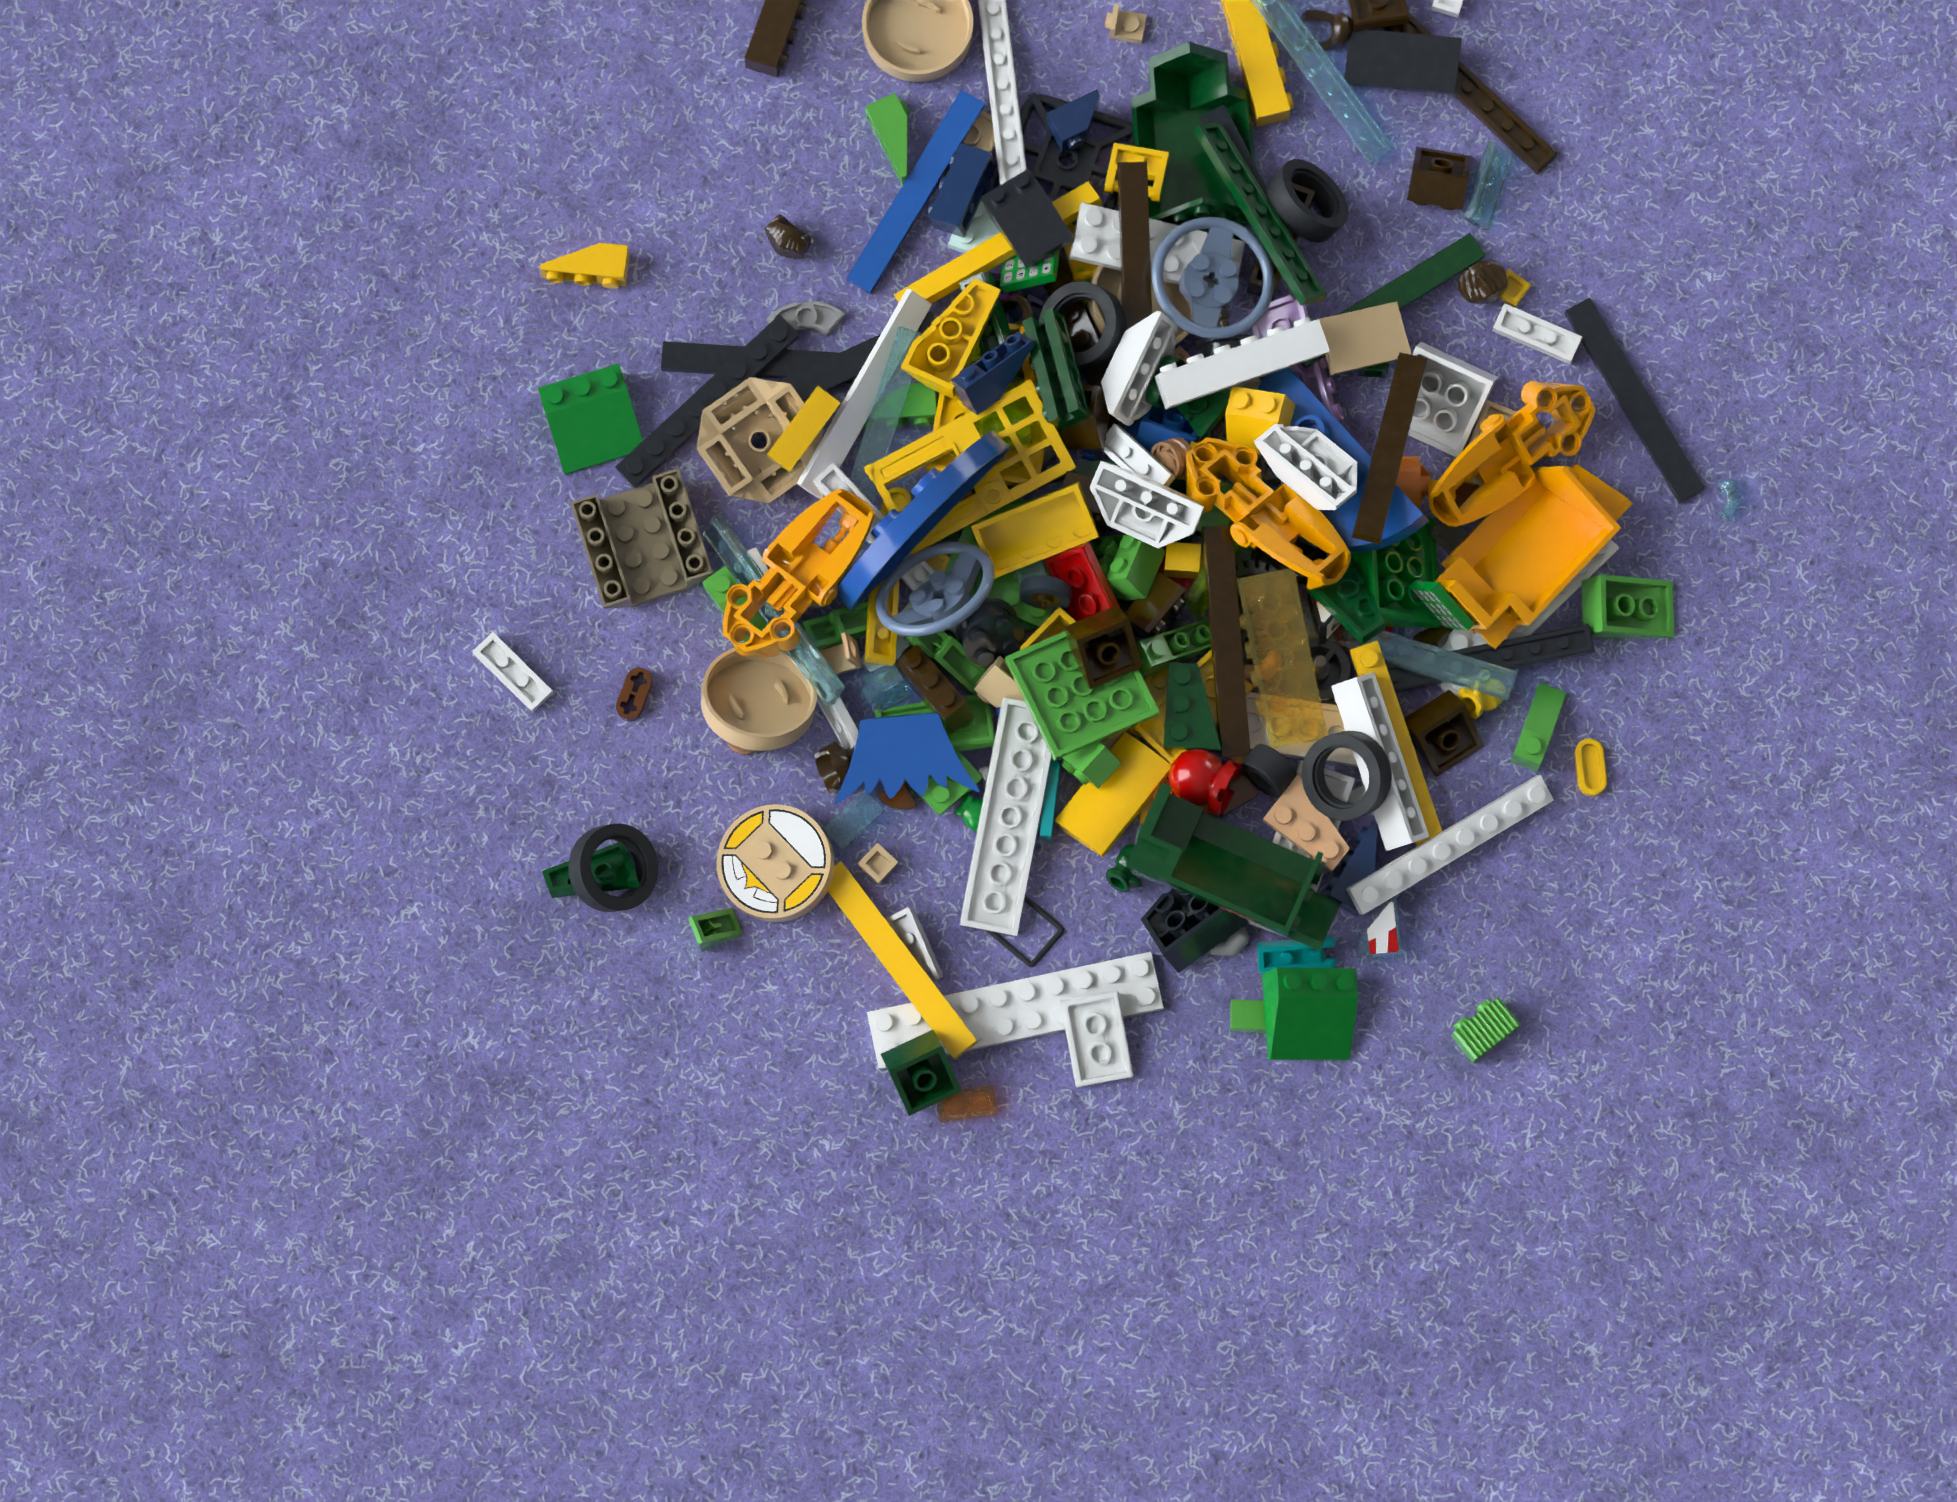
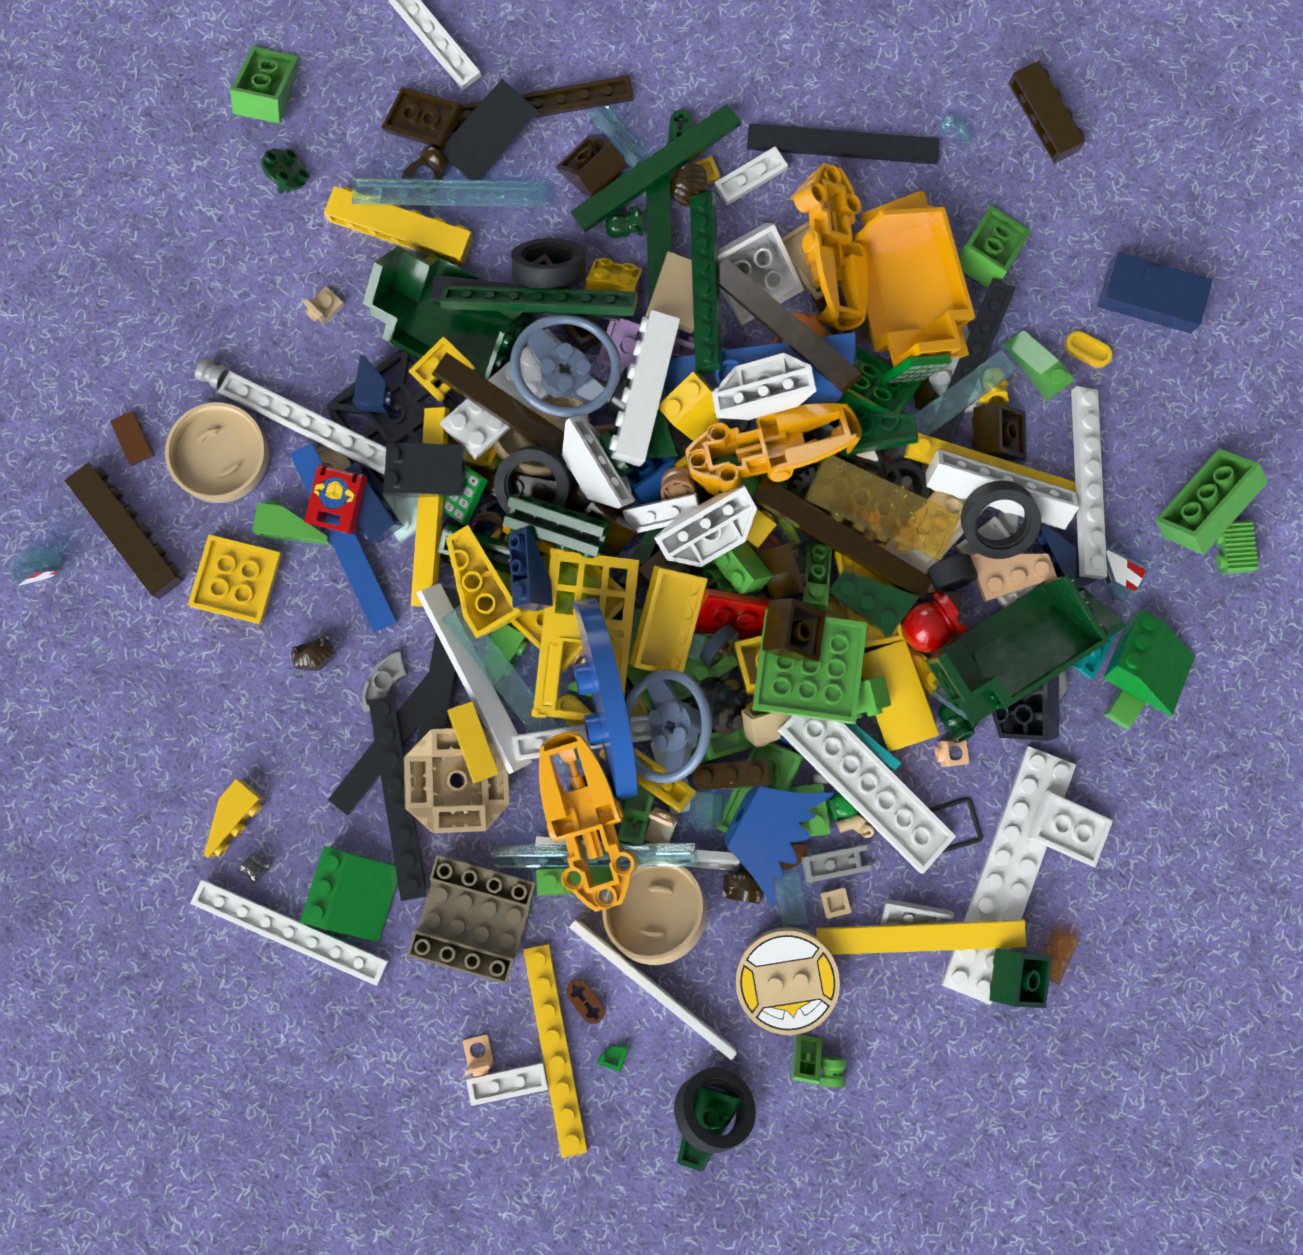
camera: 60 degrees left, 5 degrees up
(511, 634) = (480, 1065): none -> light nougat bracket
(520, 388) = (289, 932): none -> white plate
(557, 317) = (254, 868): none -> clear smoke wheel
(571, 696) = (555, 1051): none -> yellow plate
(599, 754) = (613, 1057): none -> green tile
(686, 746) = (654, 989): none -> white tile
(719, 960) = (833, 1071): none -> bright green wheel
(810, 122) = (235, 579): none -> yellow plate
(914, 839) = (834, 863): none -> light grey hinge
(949, 158) = (336, 493): none -> red container
(966, 837) = (856, 823): none -> tan arm
(1089, 874) = (943, 757): none -> light nougat bracket
(1338, 273) = (613, 276): none -> yellow slope
(1388, 353) = (705, 283): none -> dark green plate
(1399, 246) = (623, 225): none -> dark green animal
(1478, 239) = (655, 168): none -> dark green tile
(1510, 971) = (1211, 501): none -> bright green brick
(1530, 233) = (673, 128): none -> dark green beam
(1690, 792) = (1155, 293): none -> dark blue brick
(1806, 573) = (1046, 111): none -> dark brown brick

